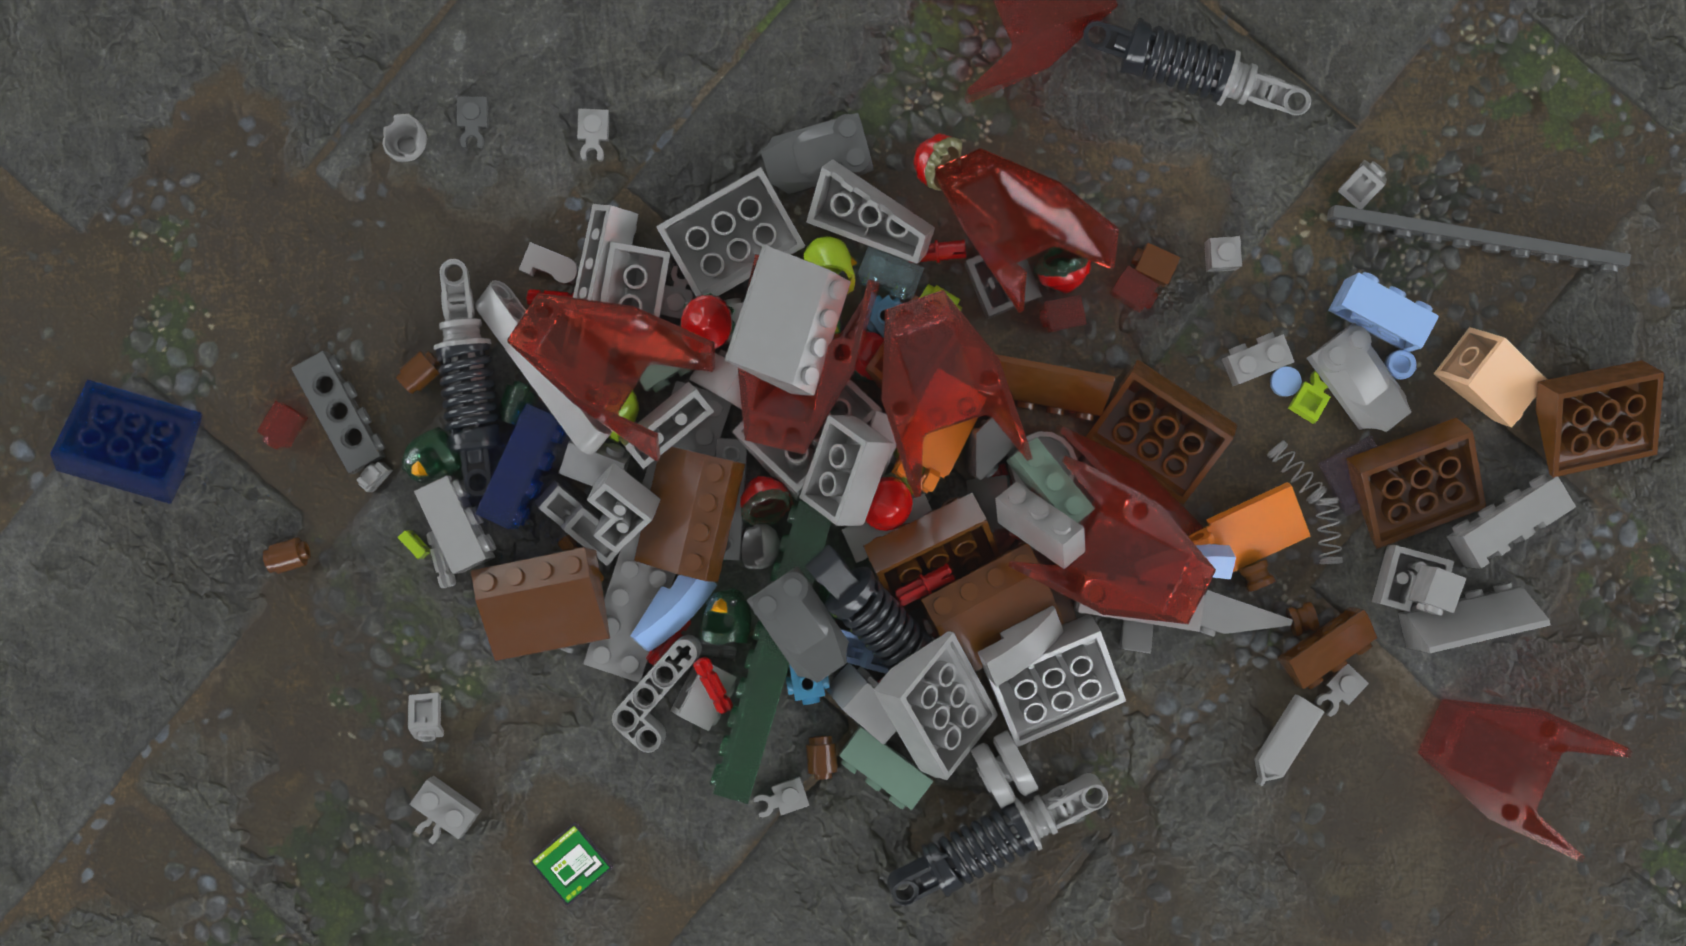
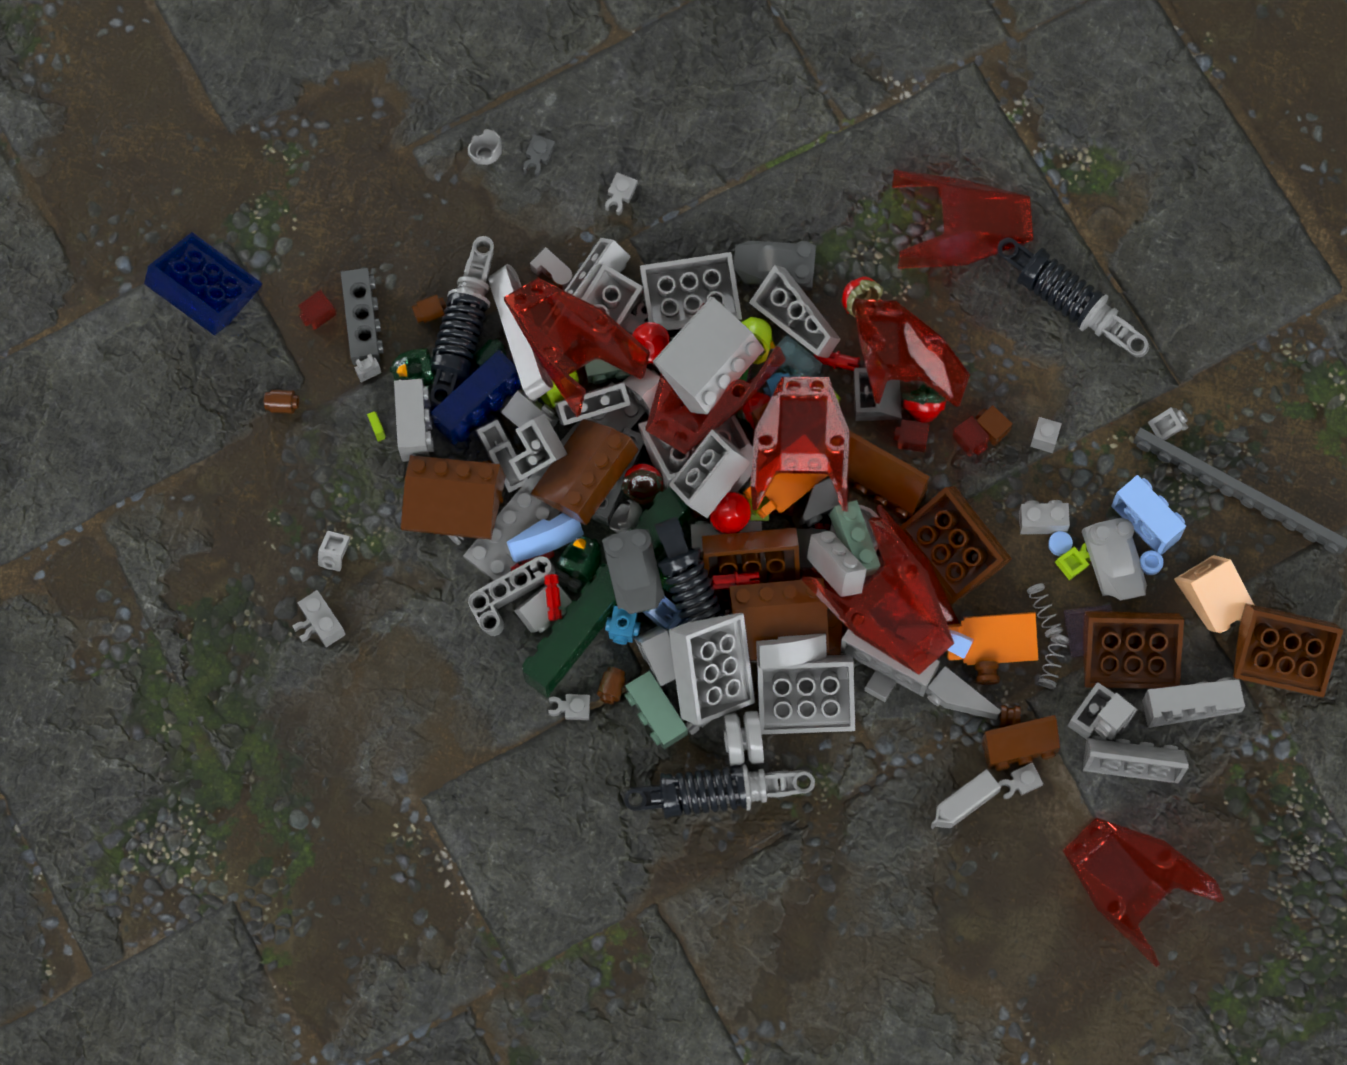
camera: 25 degrees right, 15 degrees down
(445, 578) = (390, 445): light grey axle -> none
(571, 863) = (395, 696): tile -> none

